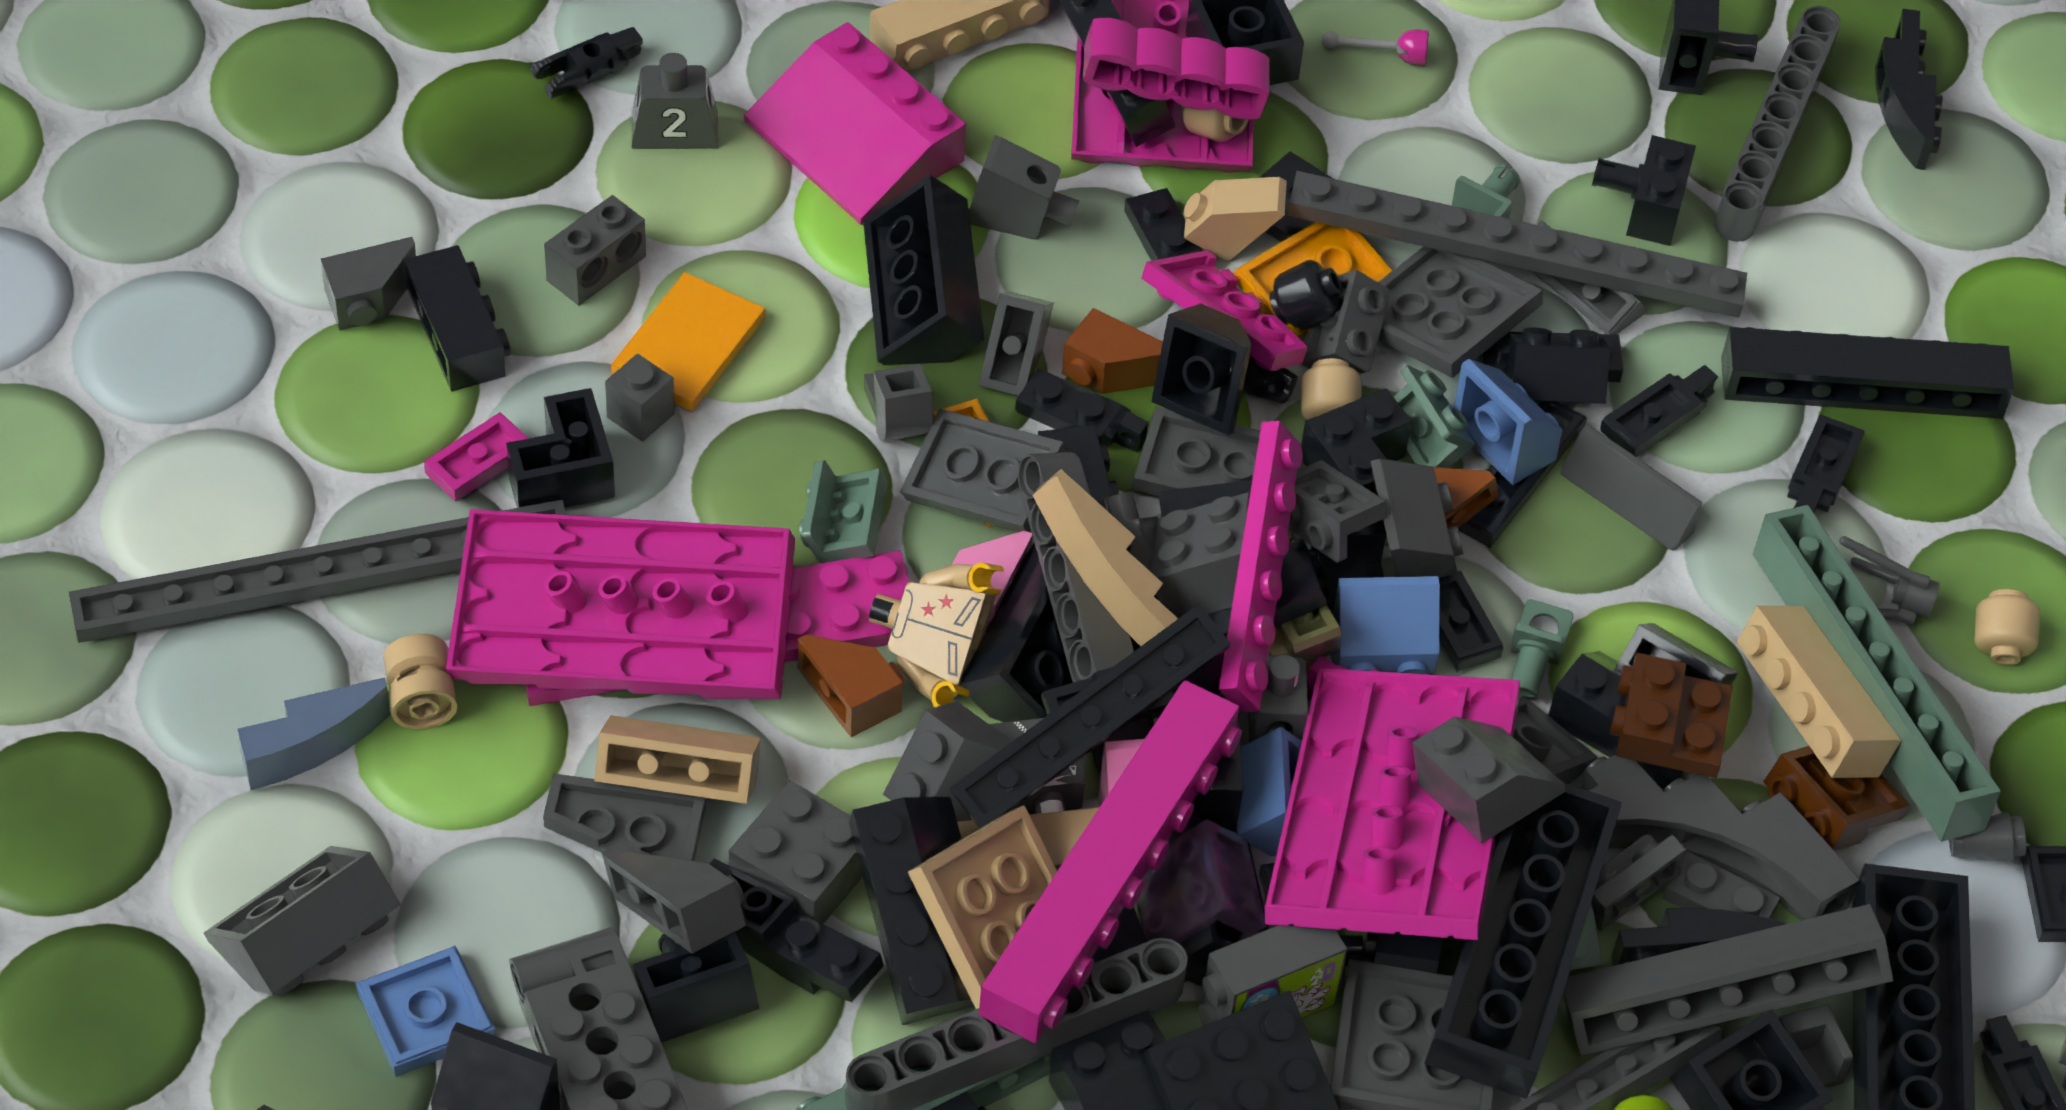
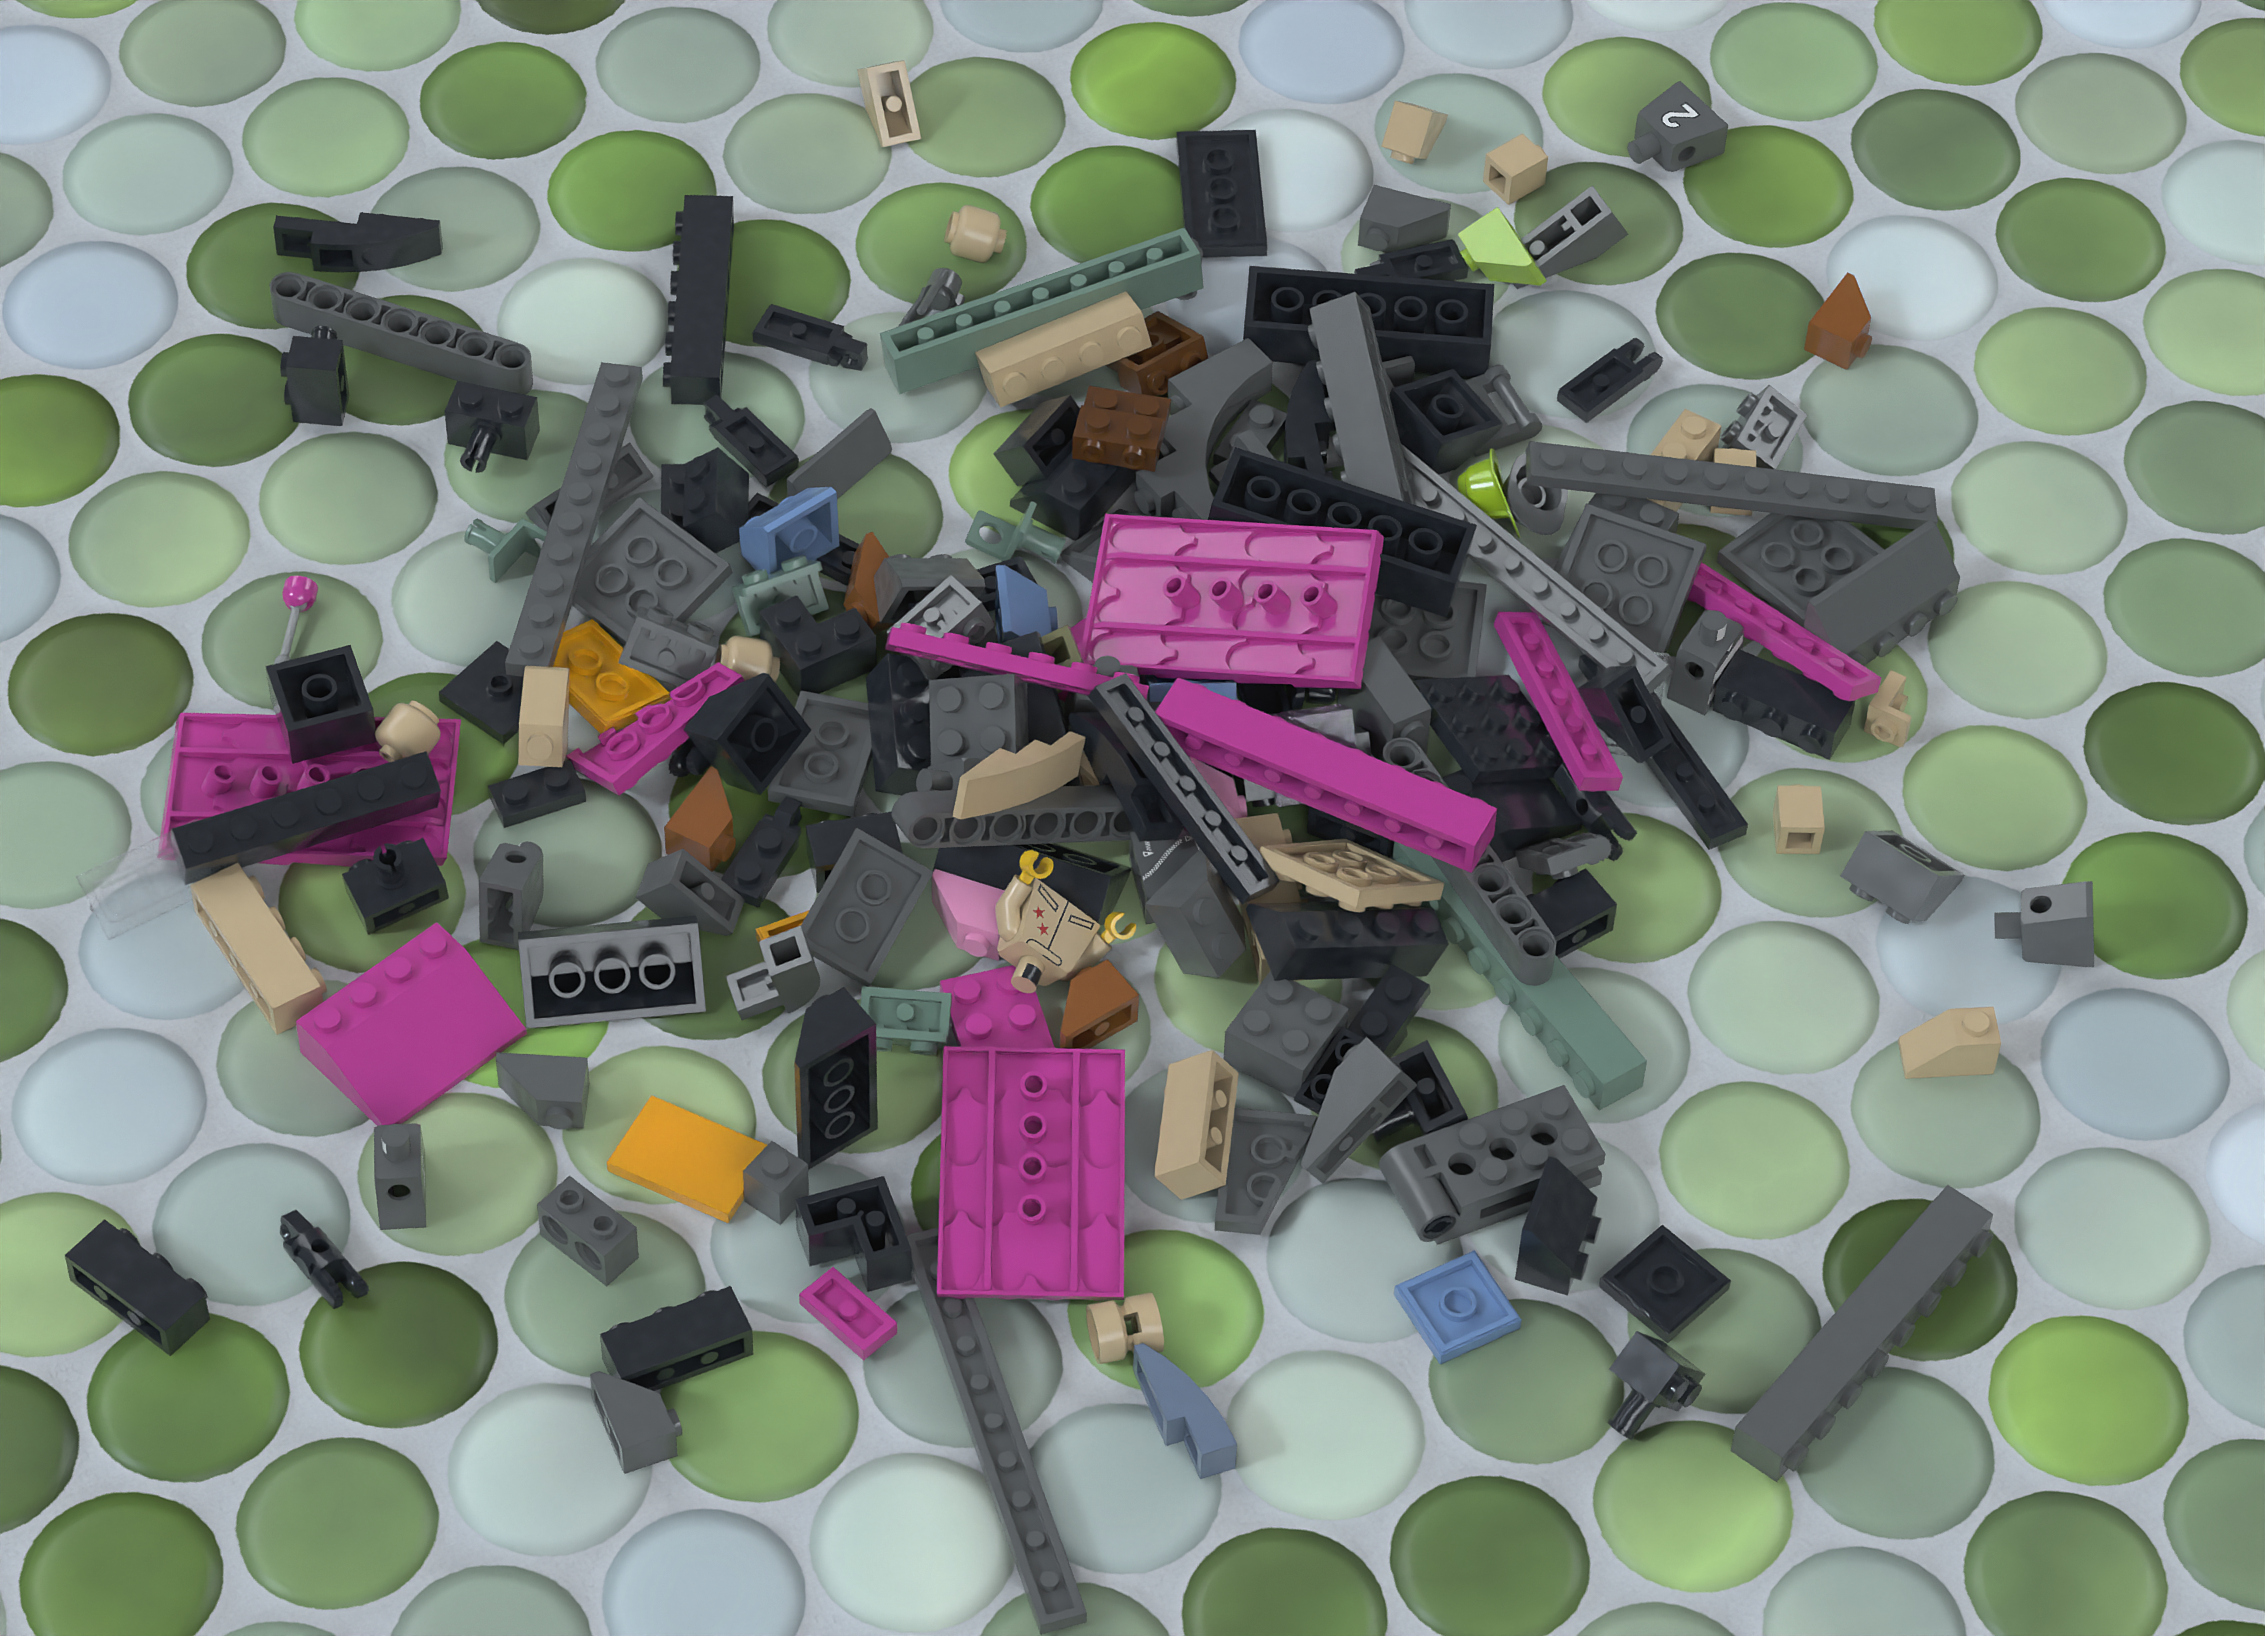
camera: 90 degrees left, 0 degrees up
(304, 919) = (1381, 1399): dark grey slope -> none
(720, 399) = (835, 1077): none -> black slope
(773, 226) = (546, 1087): none -> dark grey slope
(1027, 103) = (394, 884): none -> black brick
(1167, 67) = (408, 729): dark pink brick -> none
(1305, 294) = (650, 664): black head -> none
(1482, 776) = (1233, 522): dark grey slope -> none

